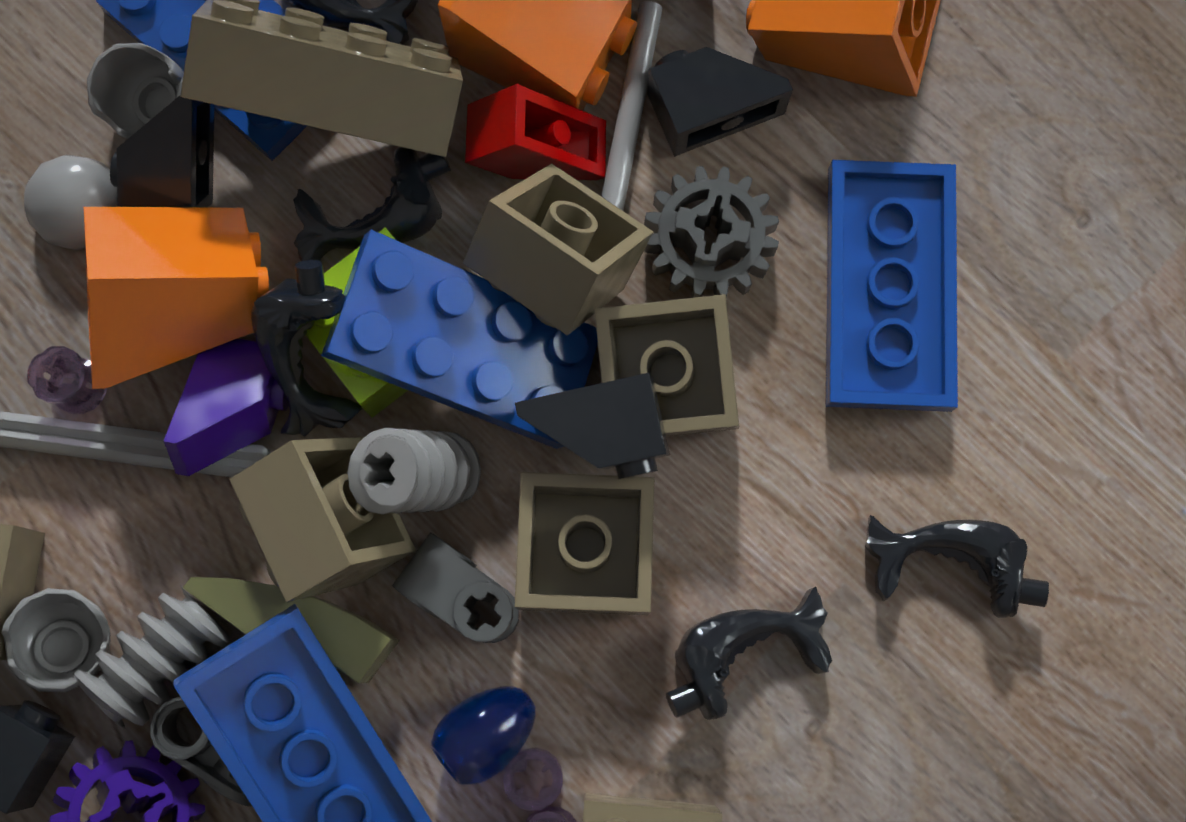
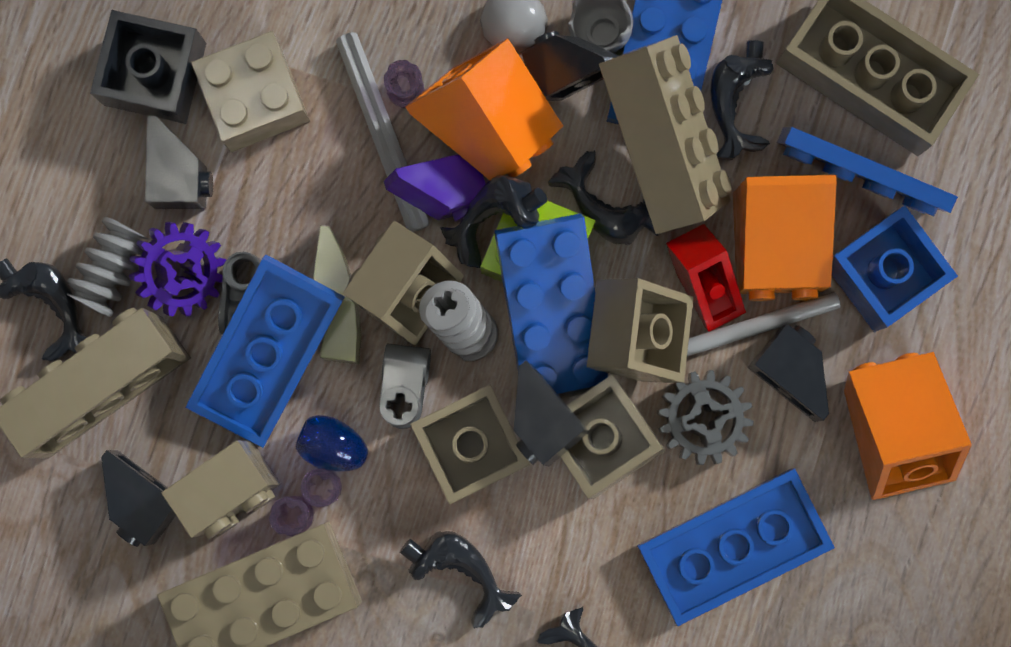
camera: 60 degrees right, 5 degrees up
(53, 638) = (253, 170): light grey hair -> none
(152, 659) = (272, 231): light grey piece -> none

